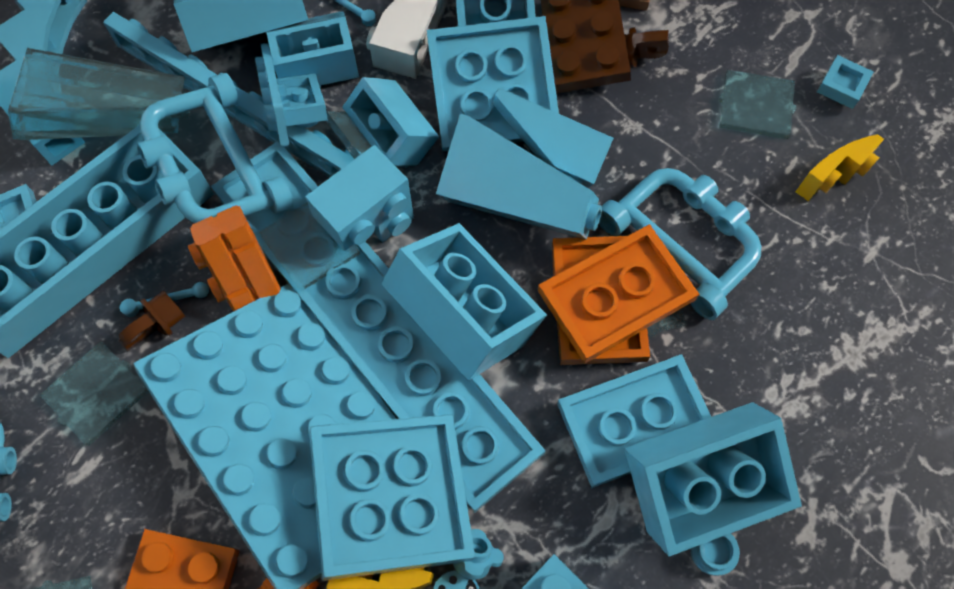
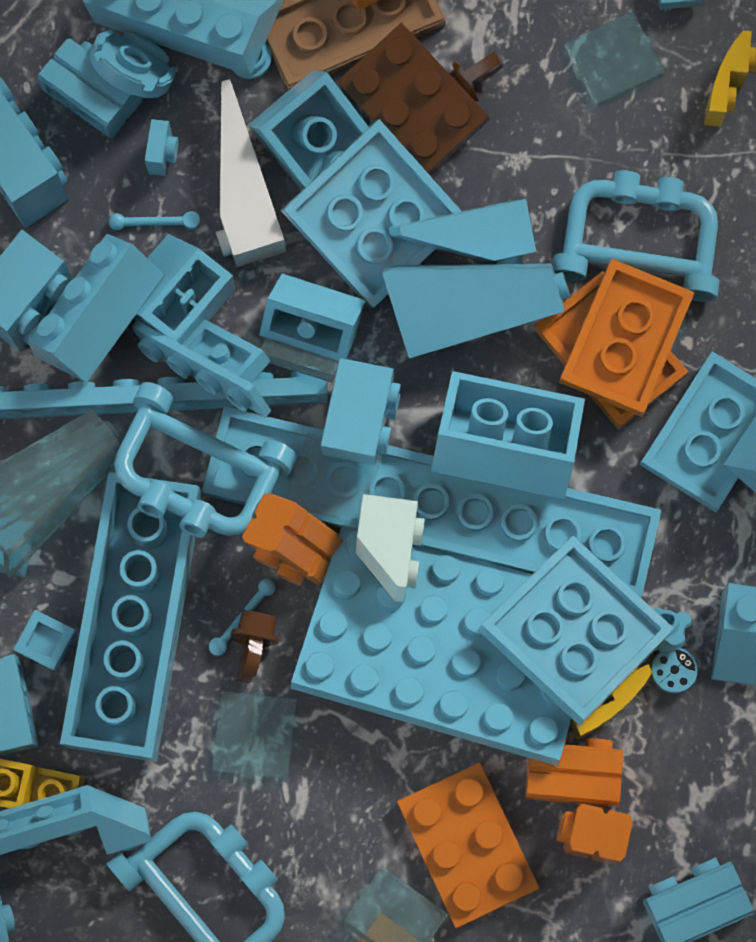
camera: 35 degrees left, 10 degrees up
(303, 309) = (386, 539): none -> light aqua slope

